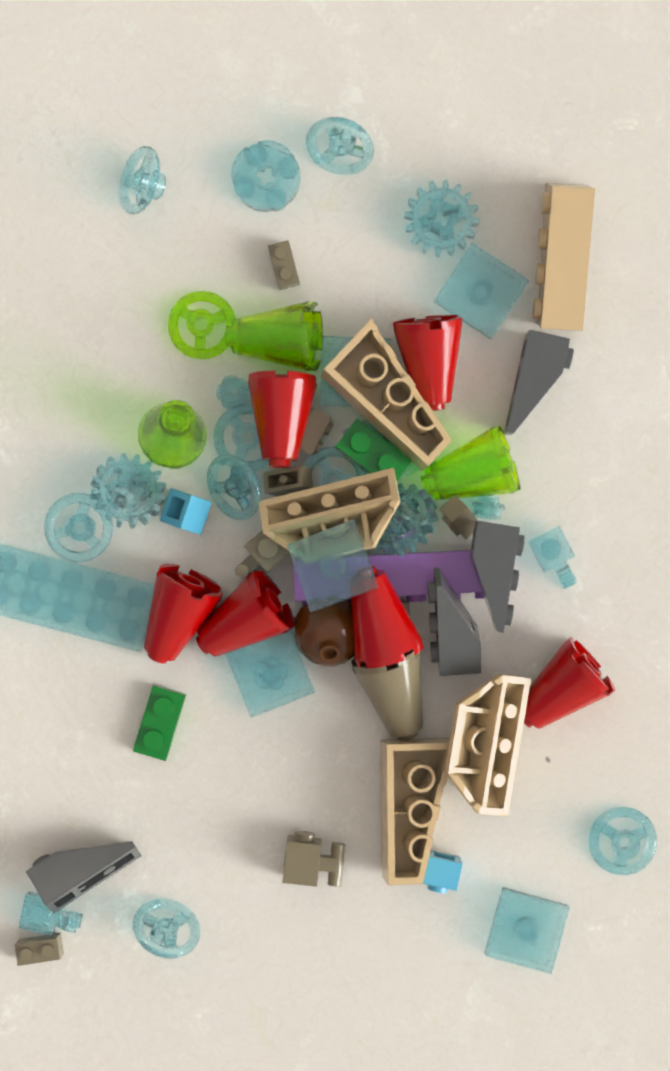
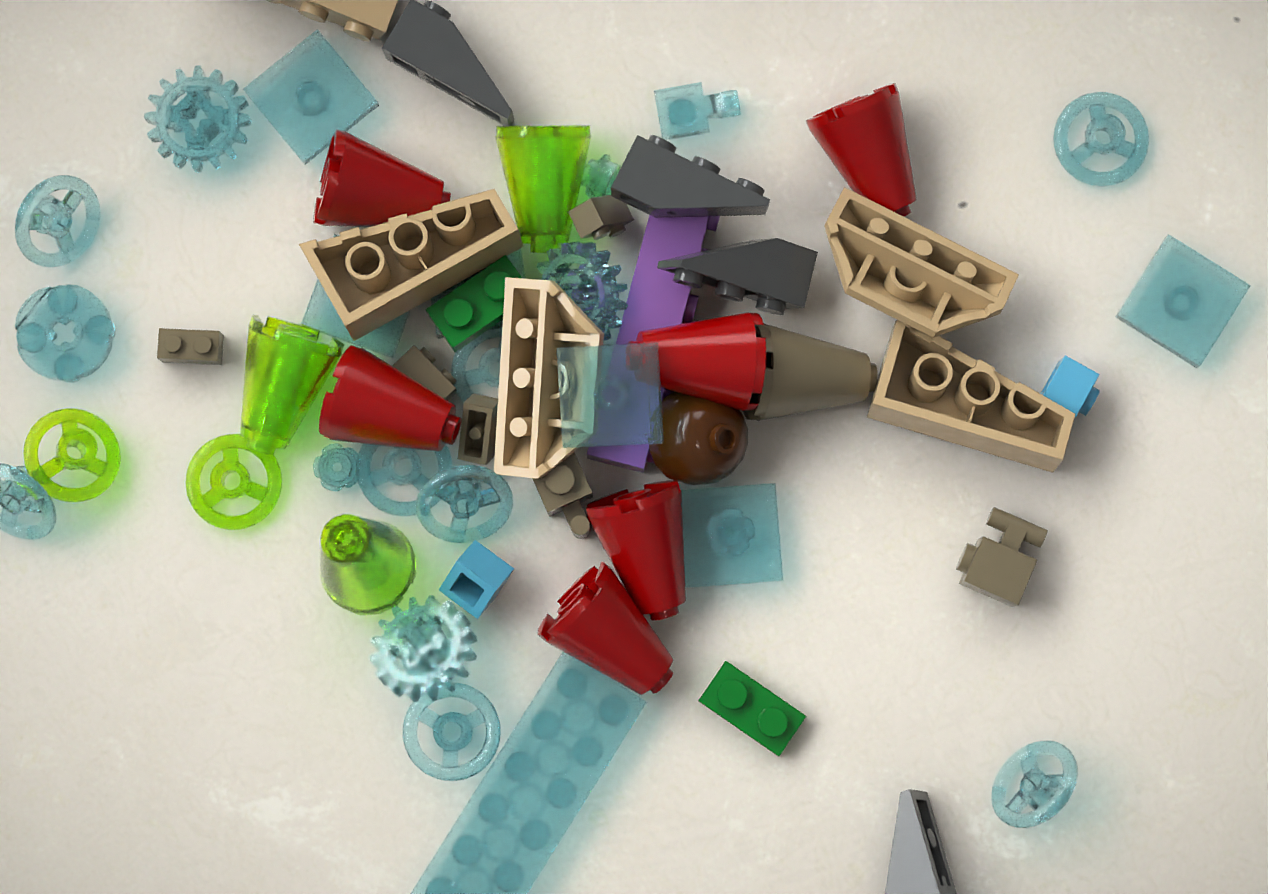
camera: 75 degrees left, 5 degrees down
(196, 205) = (84, 442): none -> clear neon green piece

